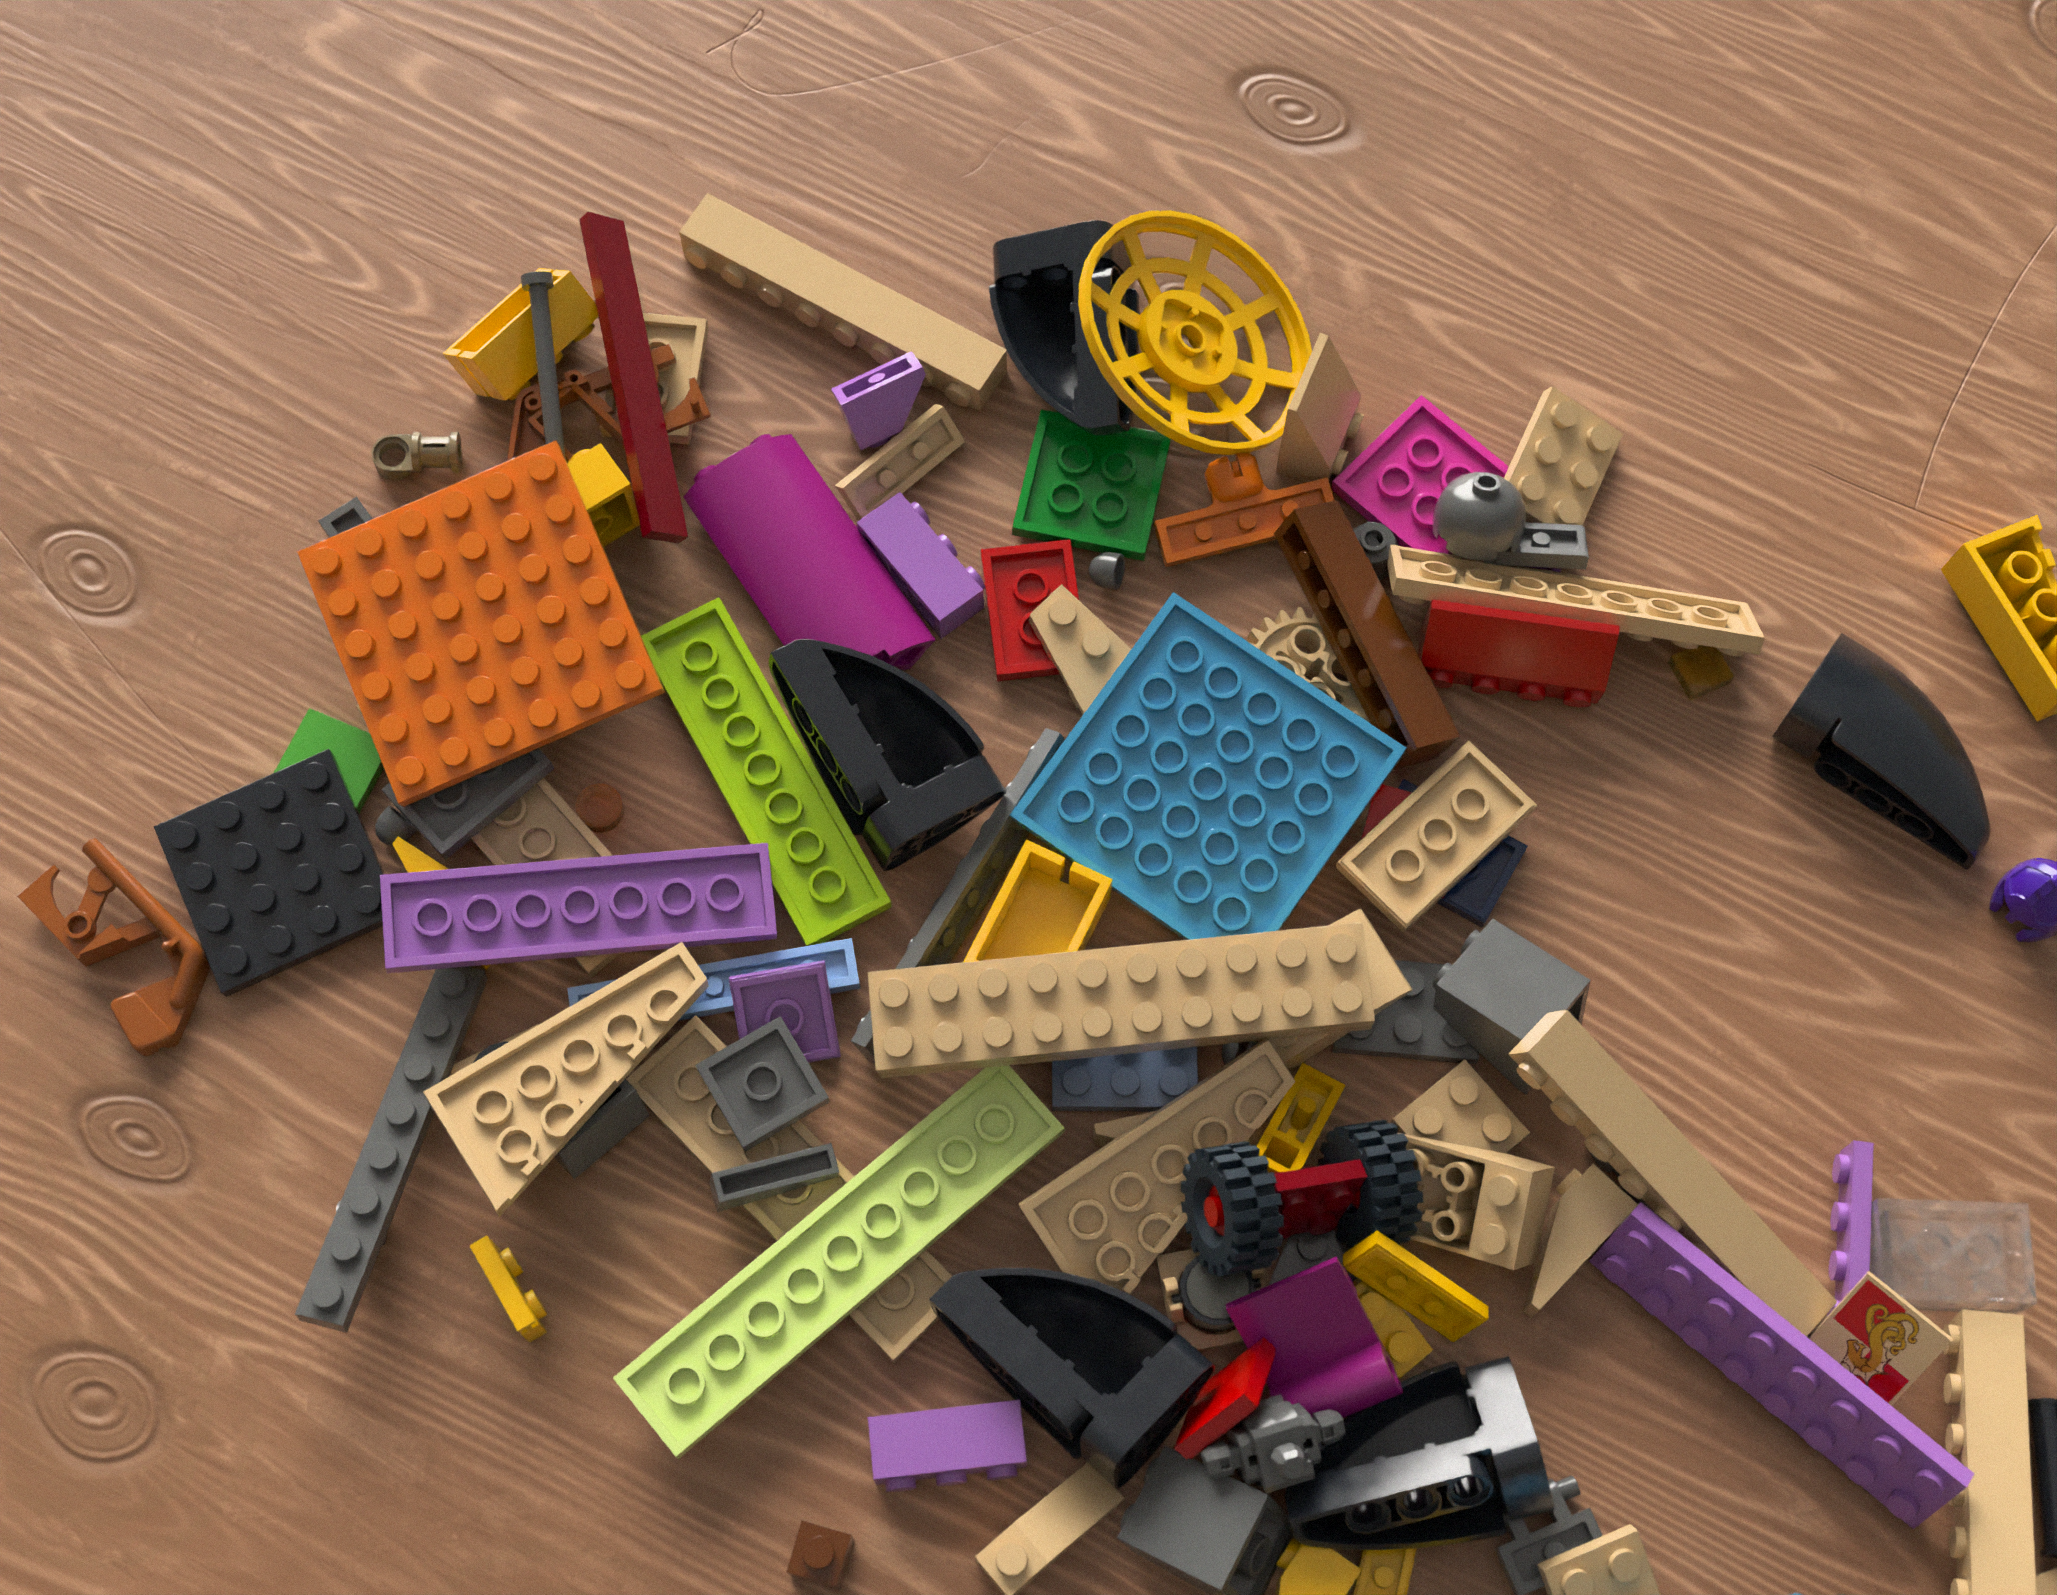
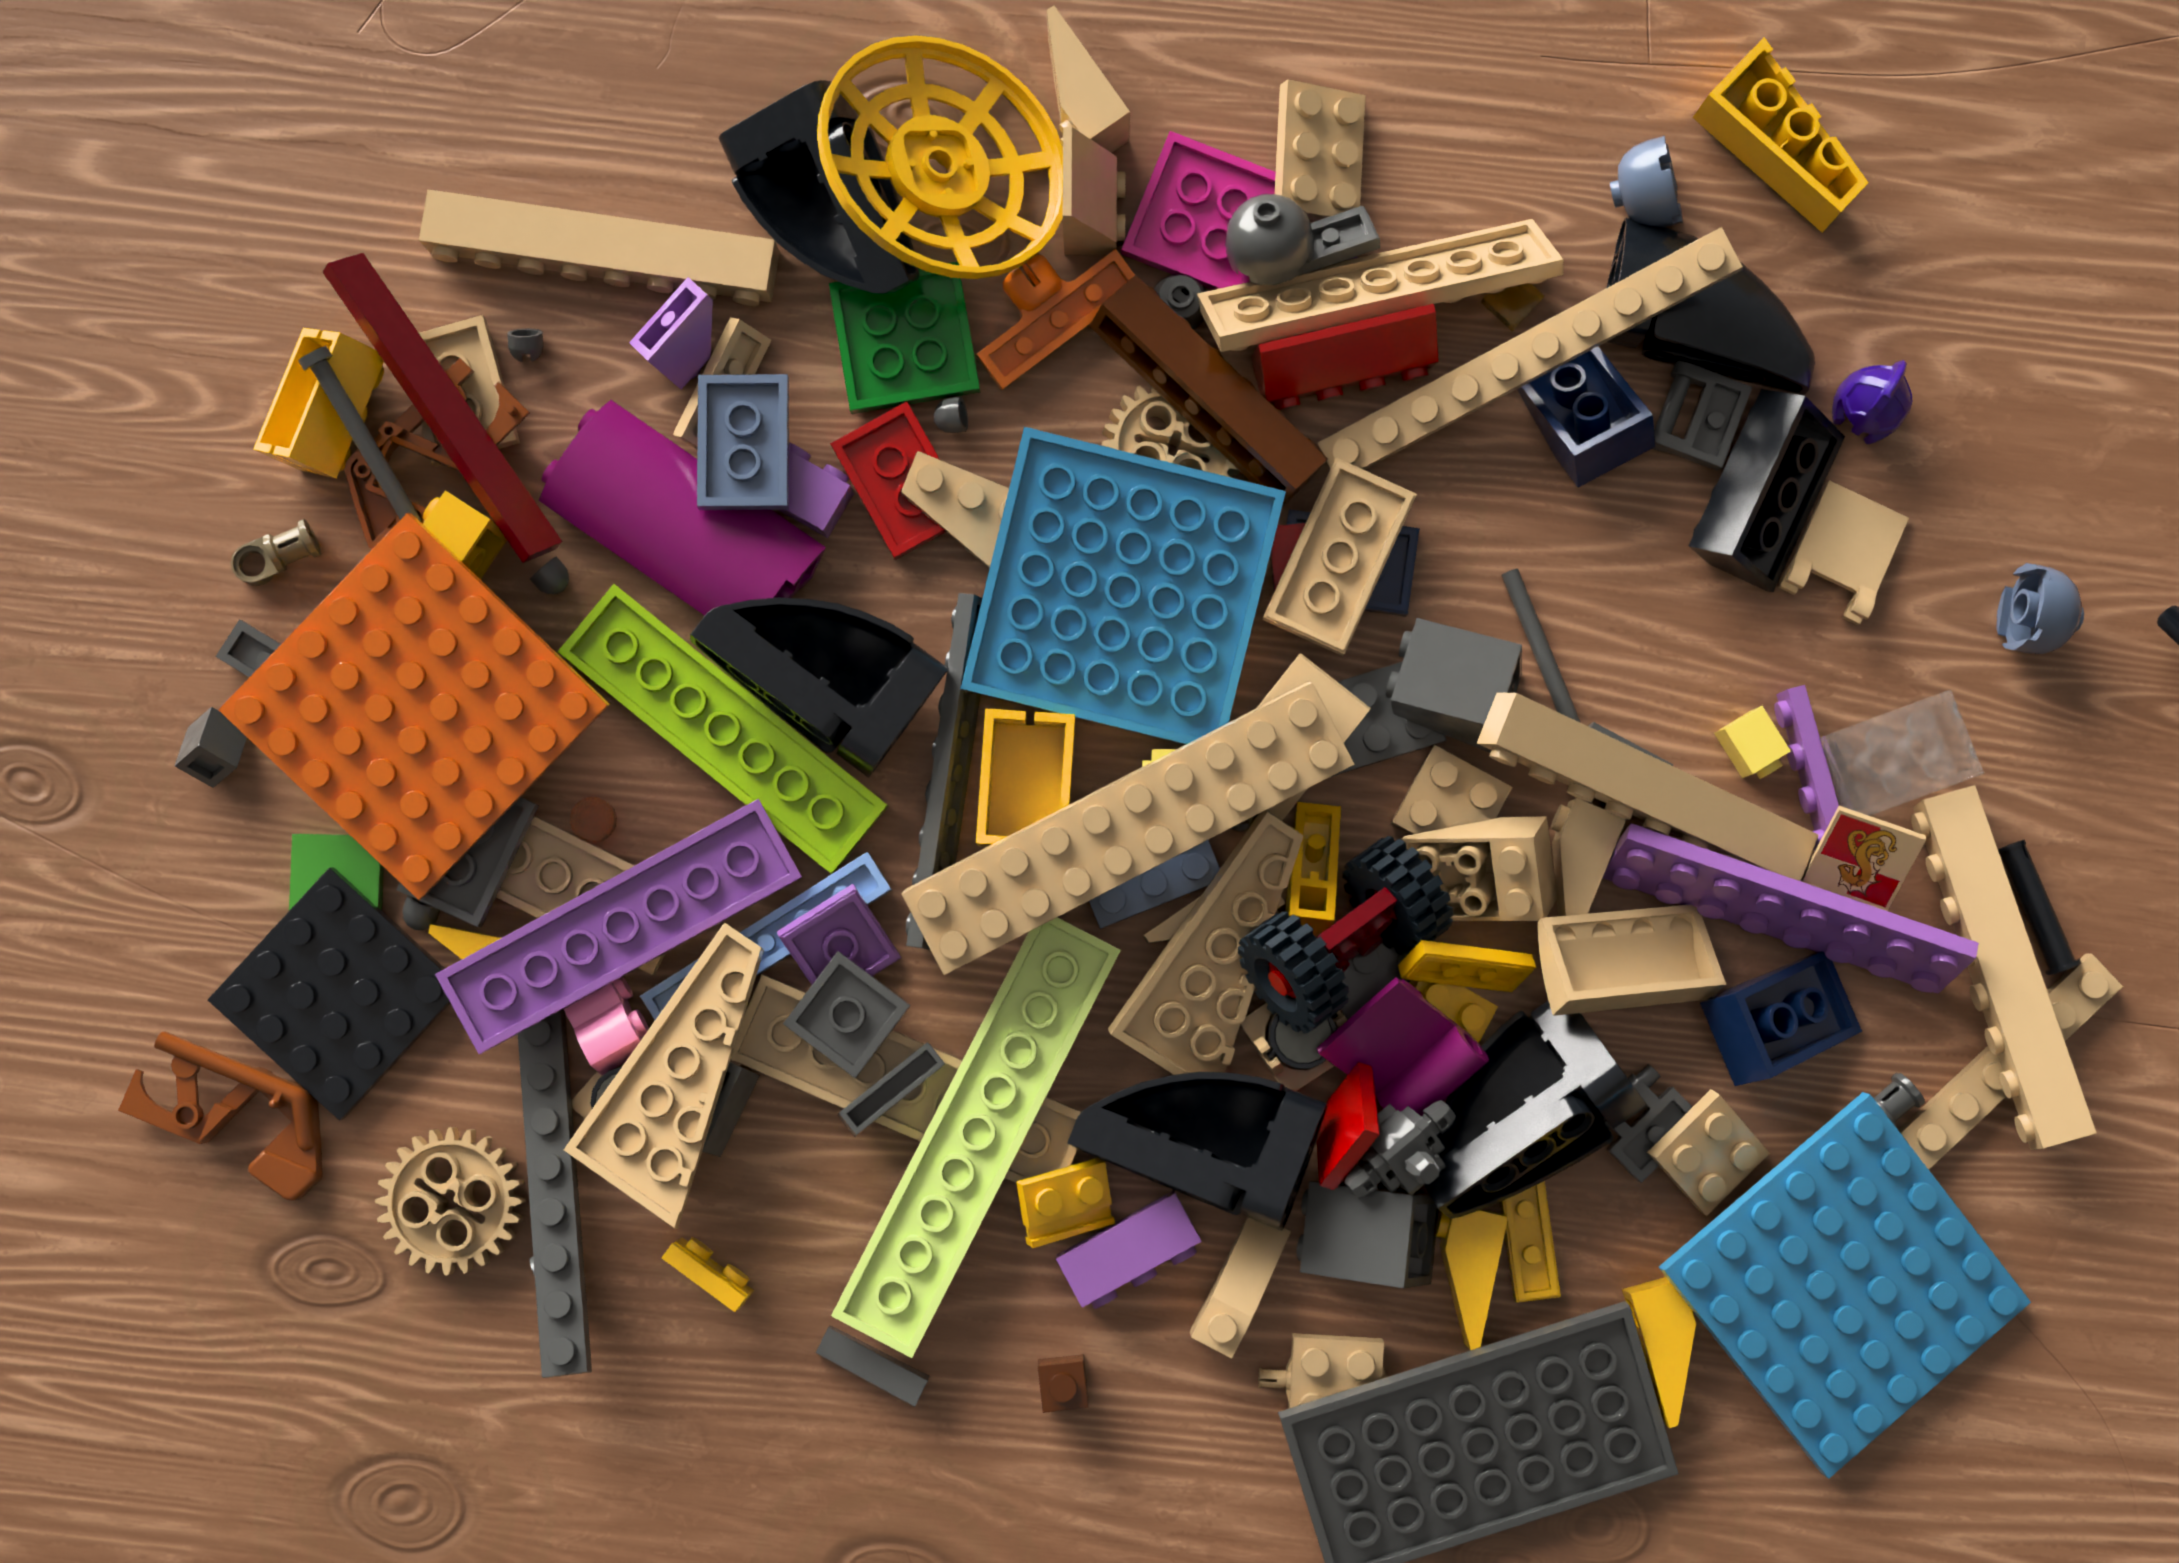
camera: 20 degrees left, 15 degrees up
(252, 1140) = (469, 1164): none -> tan gear
(274, 601) = (211, 748): none -> dark grey panel
(521, 997) = (607, 1025): none -> bright pink brick
(633, 1457) = (873, 1365): none -> dark grey piece
(662, 571) = (551, 577): none -> dark grey hinge
(736, 358) = (525, 342): none -> dark grey hinge
(898, 510) = (743, 442): none -> sand blue plate
(902, 1365) = (1065, 1202): none -> yellow plate
(1355, 324) = (1083, 91): none -> tan slope
(1588, 1350) = (1627, 959): none -> tan slope
(1608, 990) = (1539, 644): none -> dark grey bar
(1709, 712) = (1535, 352): none -> tan plate
(1731, 1482) = (1780, 1018): none -> dark blue slope
(1737, 795) = (1589, 416): none -> dark blue slope
(1798, 1185) = (1753, 744): none -> light yellow brick
(1863, 856) = (1712, 420): none -> dark grey plate
(1874, 609) = (1648, 185): none -> sand blue cylinder
(1899, 941) = (1767, 488): none -> black slope
(1966, 1029) = (1848, 545): none -> tan flag

